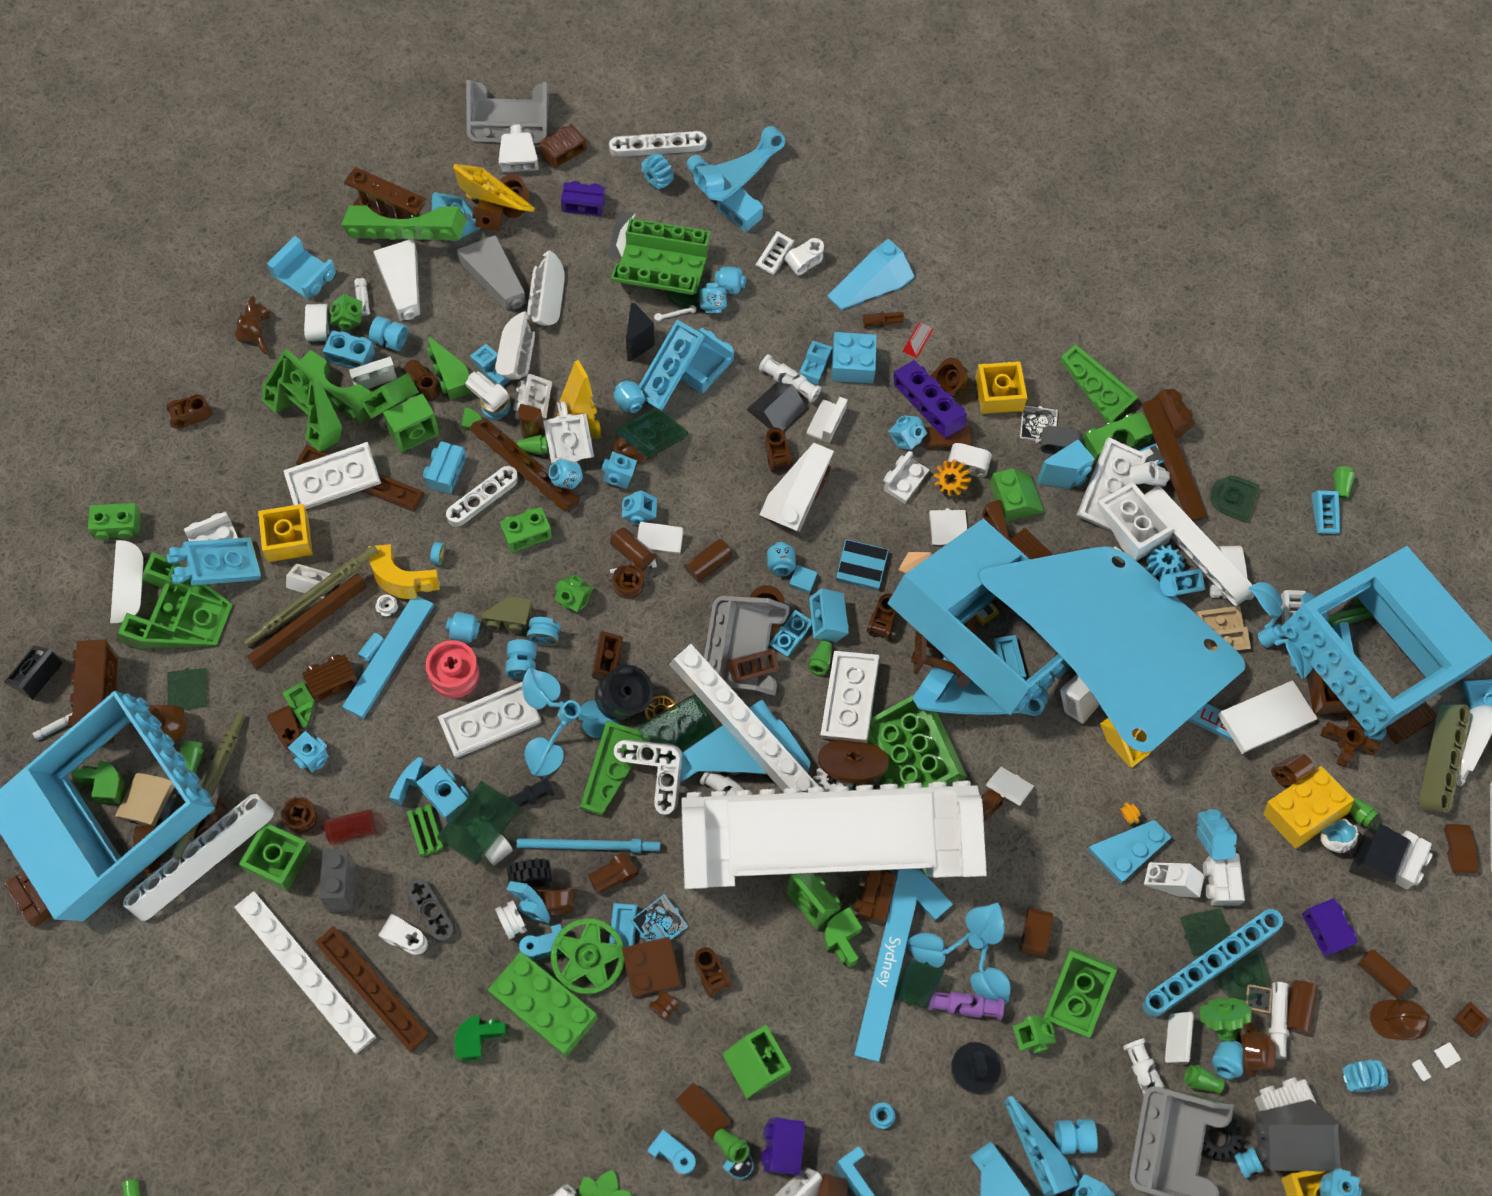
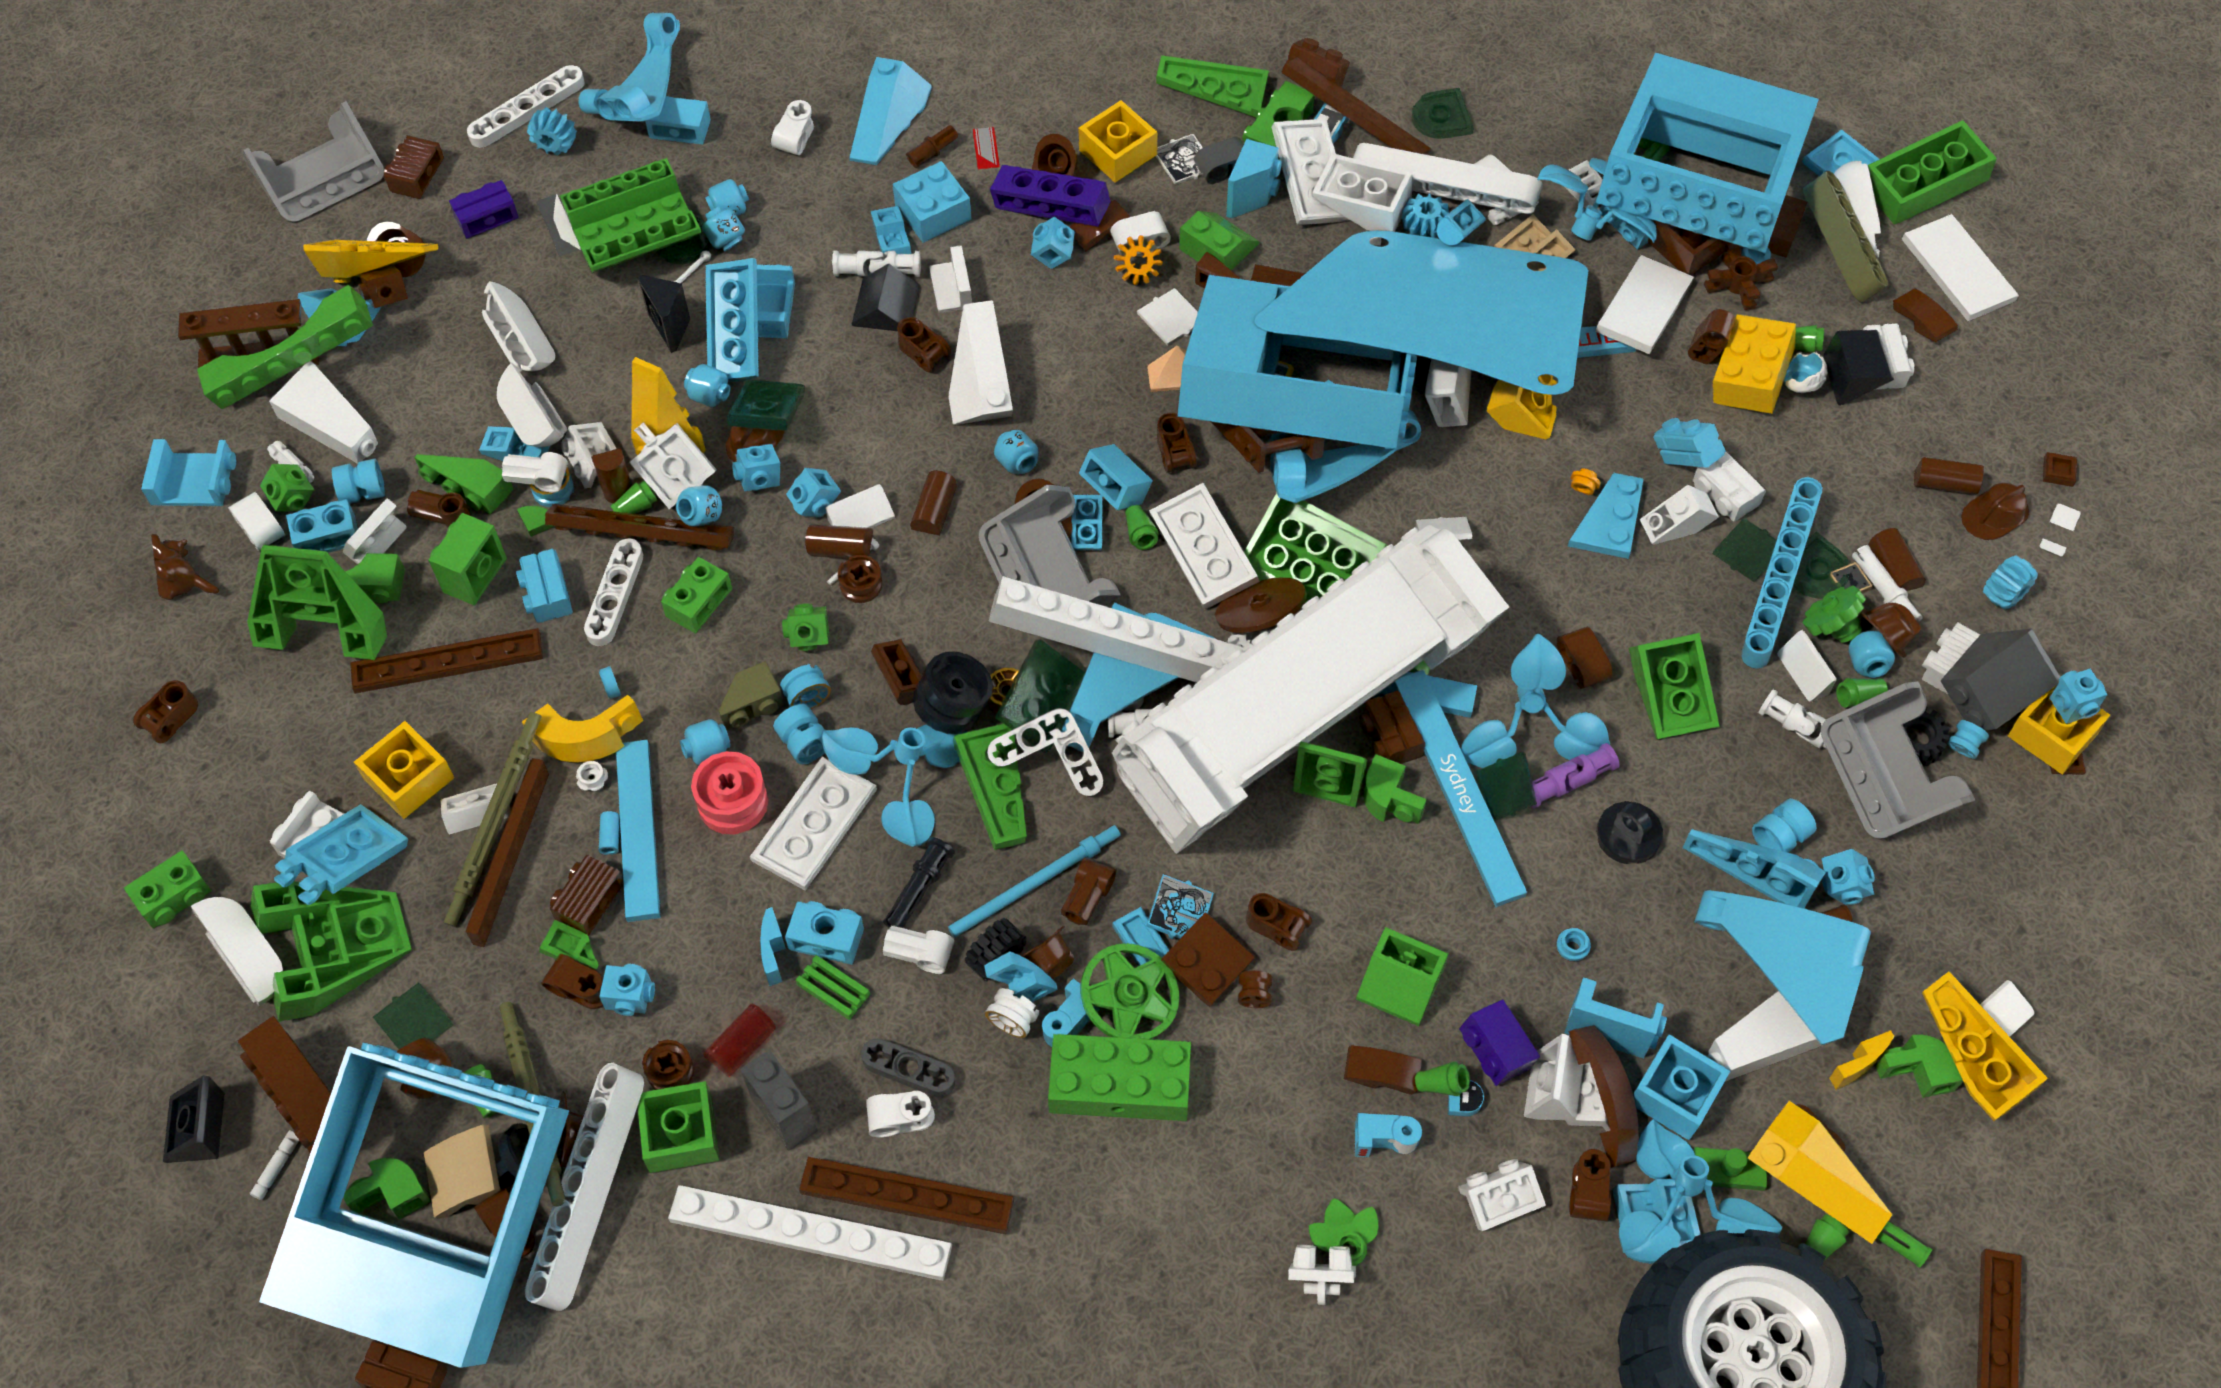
camera: 30 degrees left, 5 degrees down
(332, 476) = (412, 675): white tile -> none
(389, 395) = (417, 544): bright green slope -> none
(470, 1035) = (1064, 1164): green brick -> none
(478, 822) = (894, 932): clear green tile -> none
(491, 268) = (435, 344): light grey slope -> none
(517, 151) = (364, 200): white torso -> none
(736, 677) = (1058, 584): reddish brown slope -> none
(781, 239) = (756, 126): white slope -> none
(803, 579) = (1055, 461): medium azure tile -> none
(862, 565) = (1108, 408): tile -> none
(905, 478) = (1086, 293): white bracket -> none
(1034, 1034) = (1655, 759): bright green brick -> none
(1149, 474) = (1343, 135): white piece -> none
(1330, 927) = (1865, 465): dark purple brick -> none
(1333, 497) = (1533, 75): medium azure slope -> none
(1343, 480) = (1538, 36): bright green cone -> none

